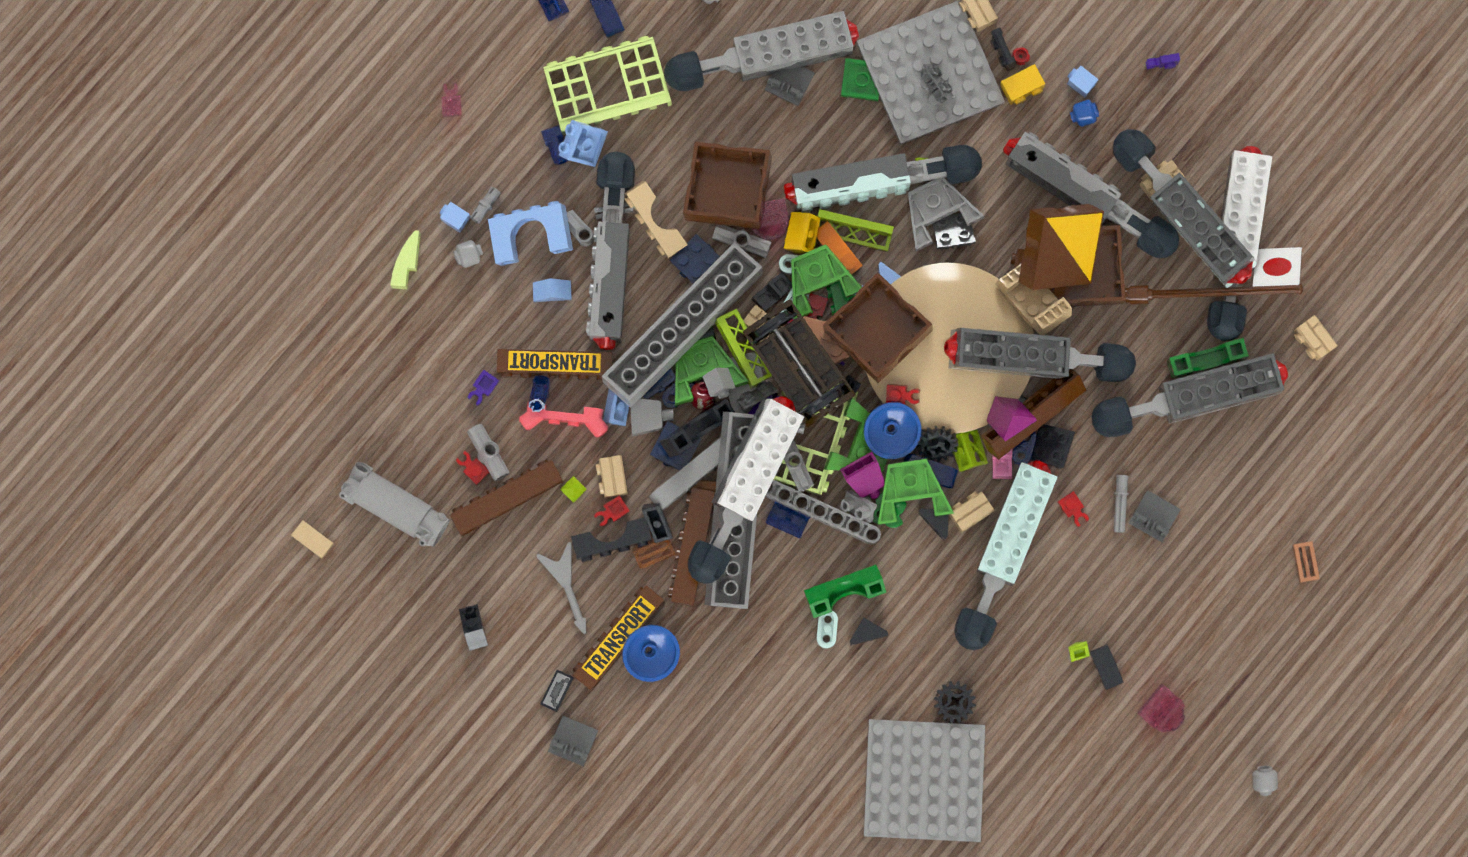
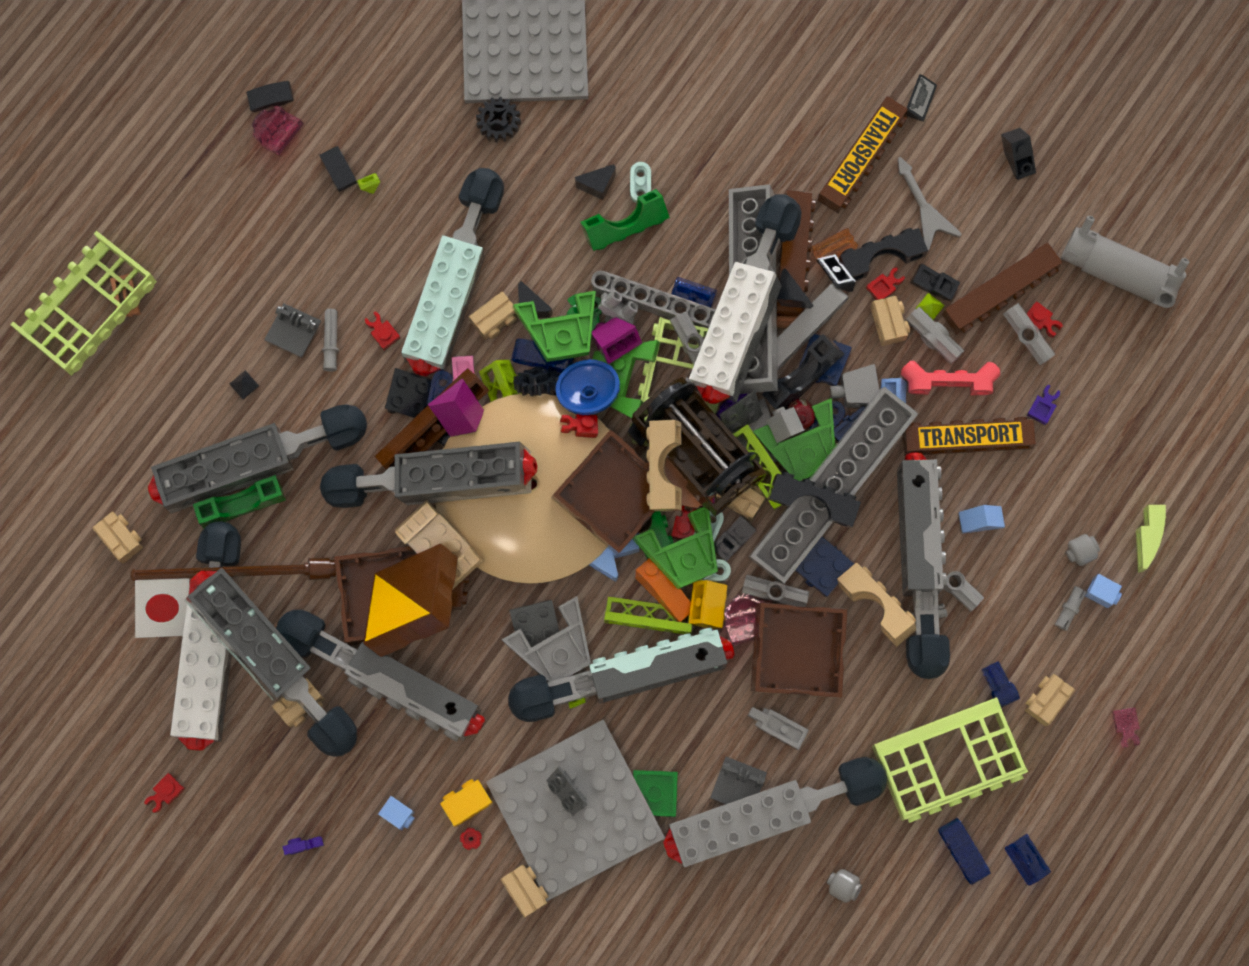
camera: 175 degrees right, 5 degrees down
(312, 539) = (1204, 230): tan tile -> none
(505, 227) = (994, 593): light blue arch -> none
(515, 128) = (1049, 699): none -> tan brick
(539, 393) = (983, 396): clear blue piece -> none
(566, 511) = (935, 283): none -> black slope
(572, 740) = (897, 51): dark grey hinge -> none
(573, 460) = (934, 335): none -> light grey piece
(582, 143) = (971, 684): light blue plate -> none
(653, 664) = (827, 138): blue dish -> none
(700, 502) = (791, 294): none -> black slope
(724, 315) = (840, 508): none -> black arch
(750, 125) = (779, 727): none -> light grey hinge
(835, 316) = (662, 438): none -> tan arch
(999, 44) = (488, 833): black plate -> none
(1084, 113) = (391, 775): blue head -> none
(1167, 744) = (270, 95): none -> black slope
(1200, 469) = (244, 384): none -> black slope
(1265, 780) = (164, 68): light grey head -> none
(1277, 118) = (167, 790): none -> red plate
(1363, 573) = (65, 287): none -> yellowish green window

